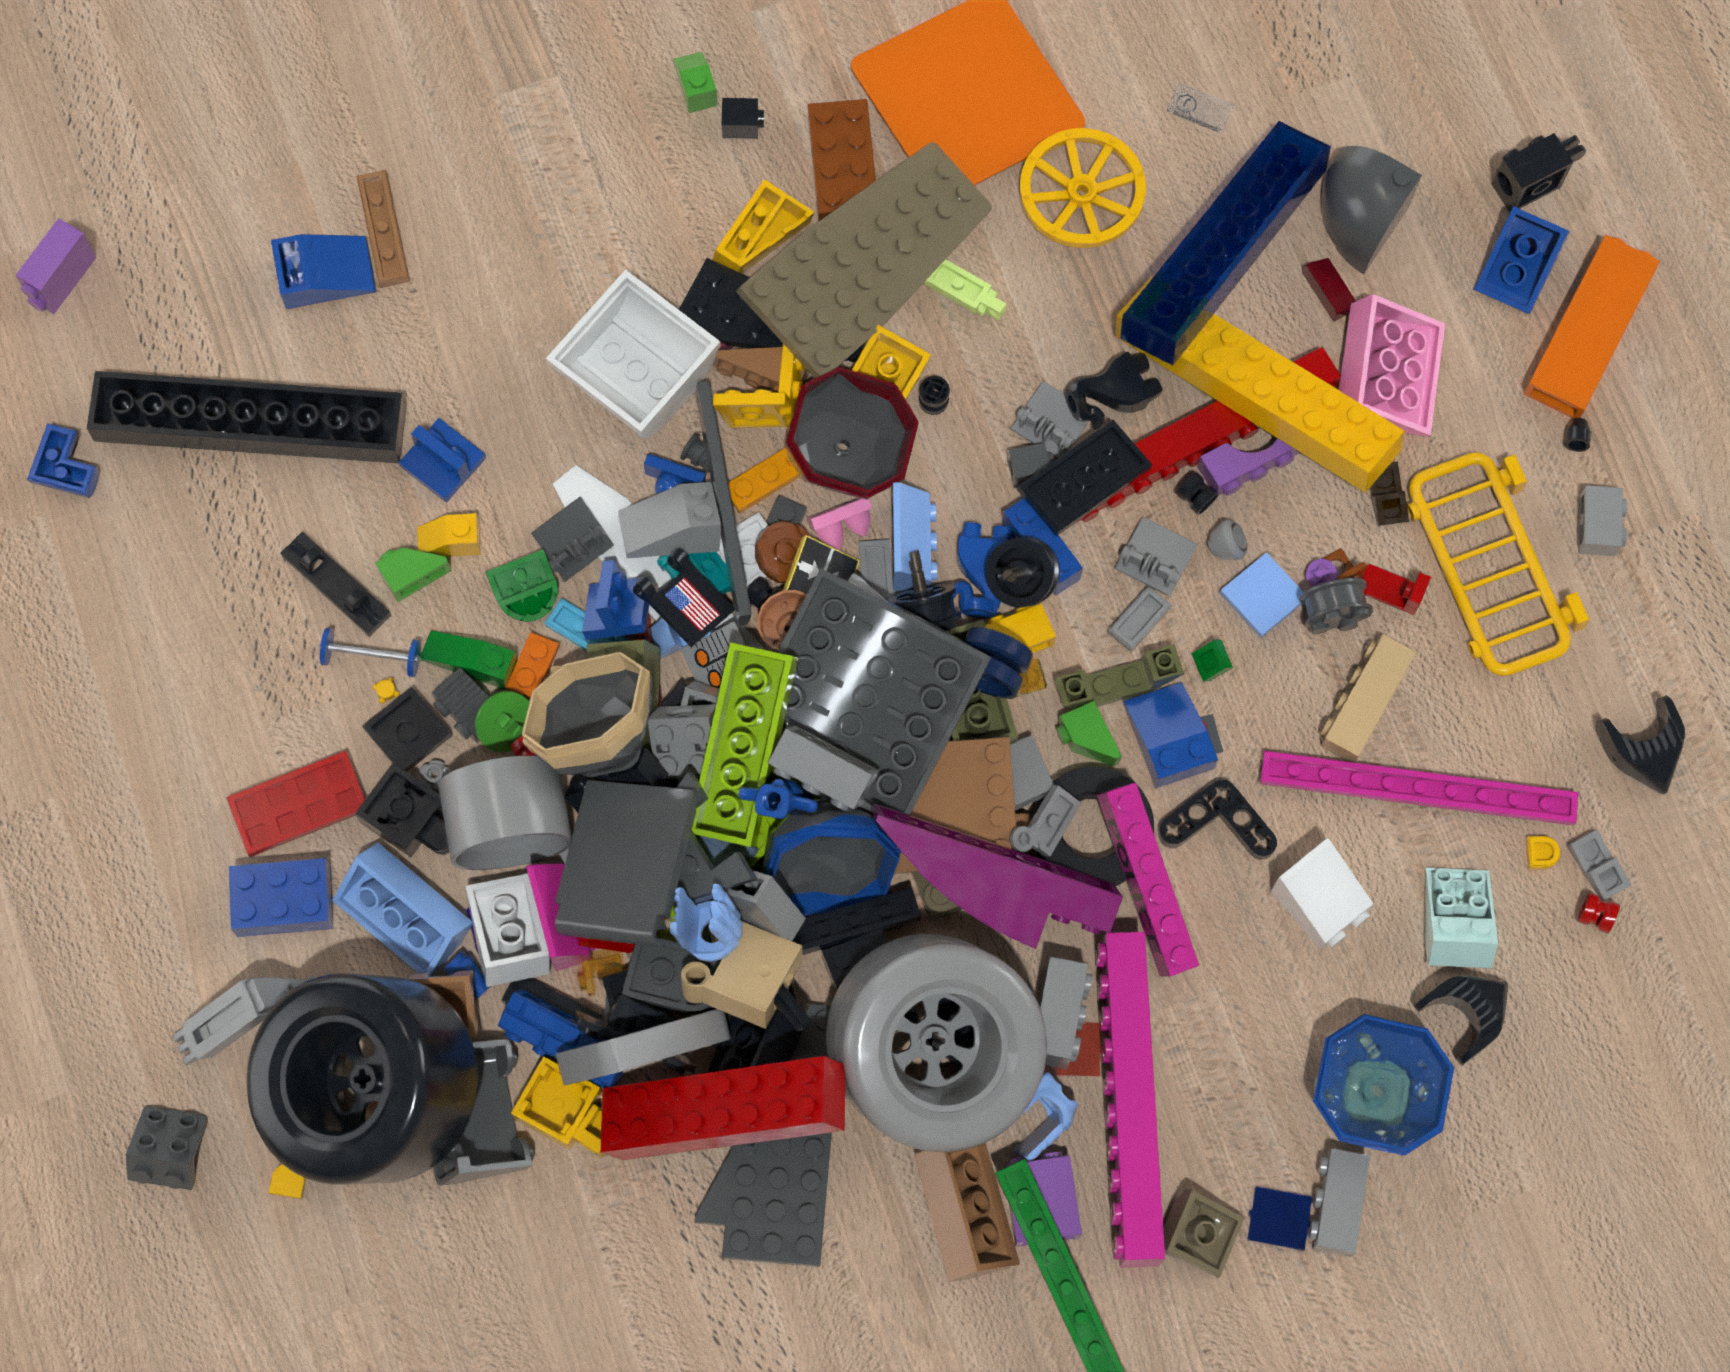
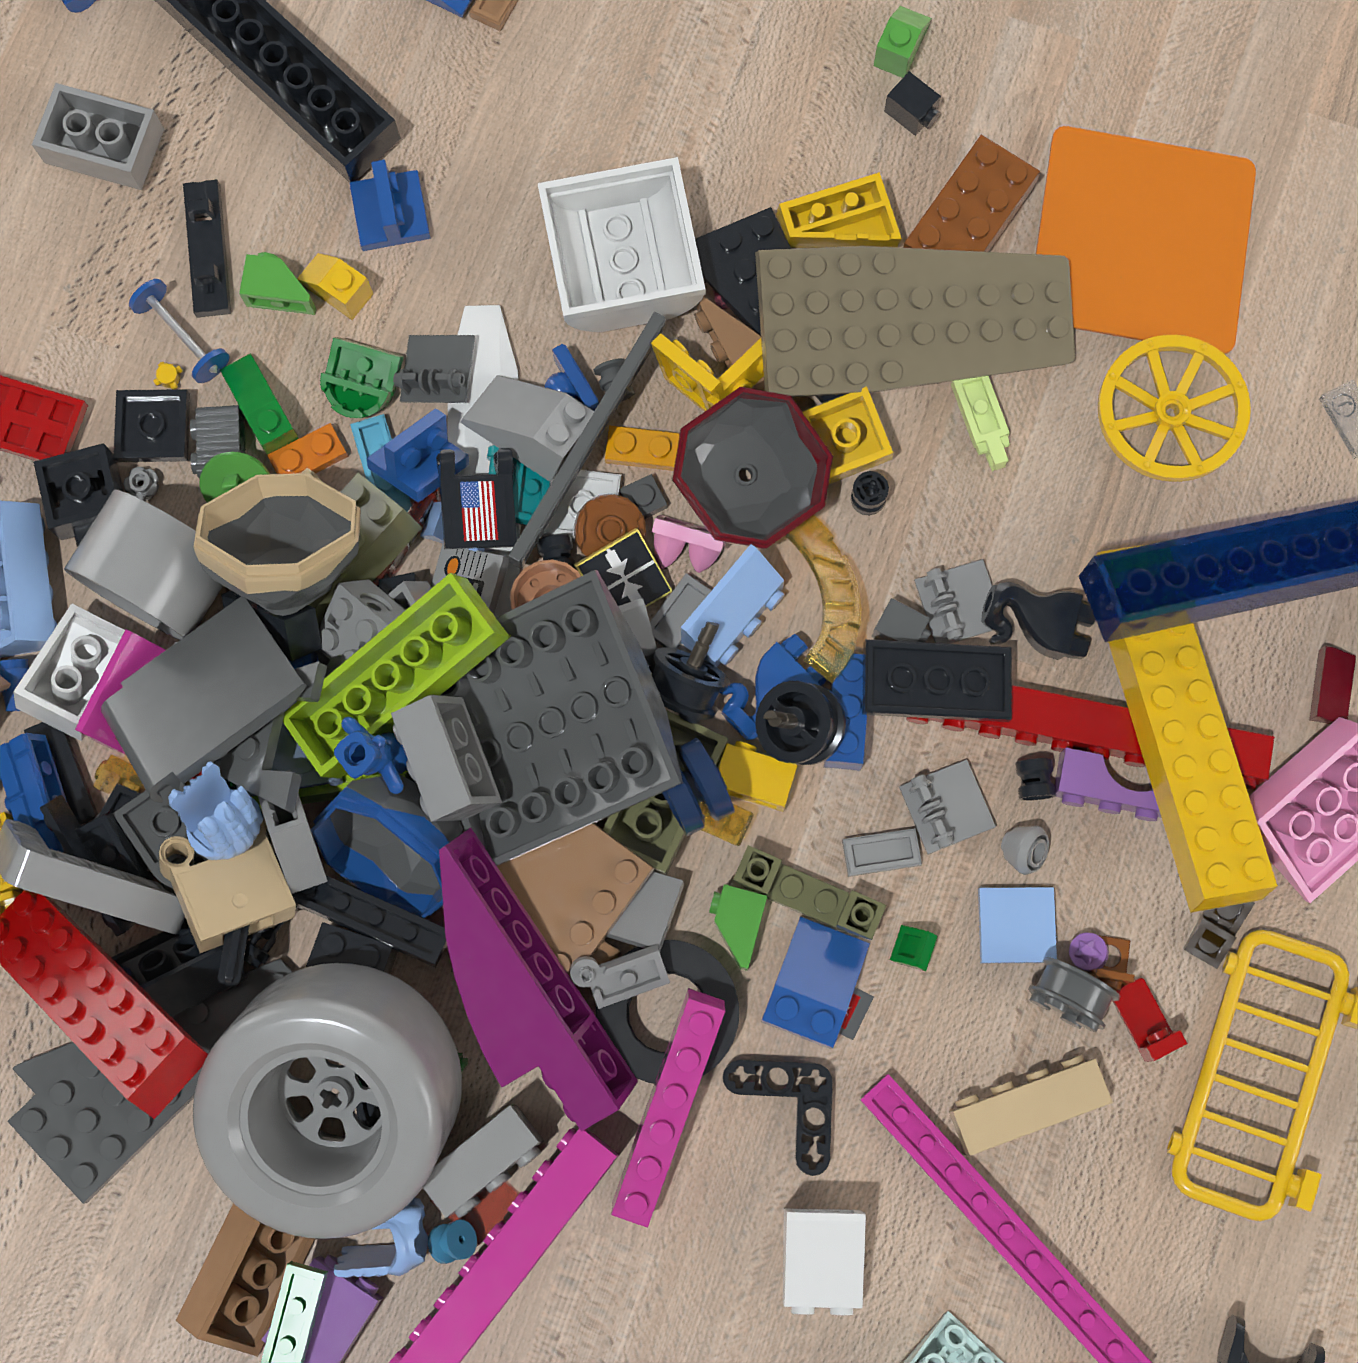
camera: 45 degrees right, 5 degrees up
(194, 565) = (98, 136): none -> light grey brick
(976, 476) = (839, 598): none -> clear yellow tile
(1081, 1084) = (452, 1241): none -> dark azure wheel

